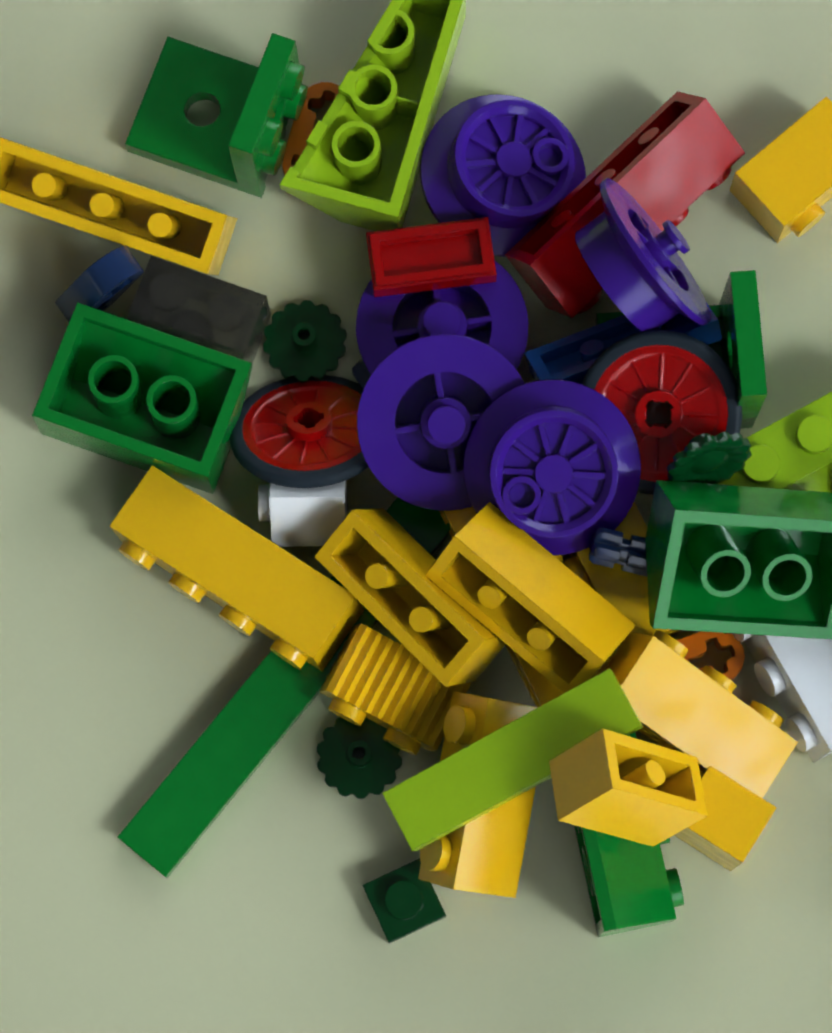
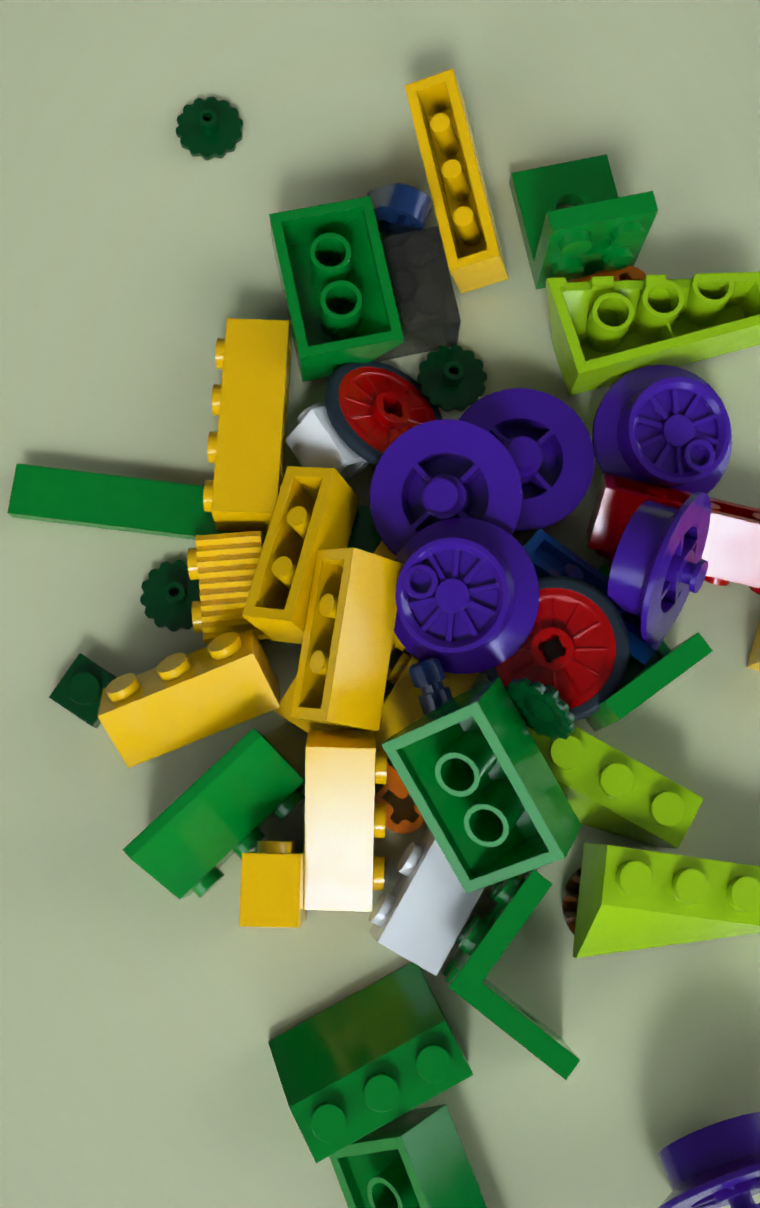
camera: 55 degrees right, 0 degrees up
(431, 257) = (565, 417): red tile -> none
(506, 760) = (215, 700): lime tile -> none
(627, 788) = (237, 799): yellow brick -> none

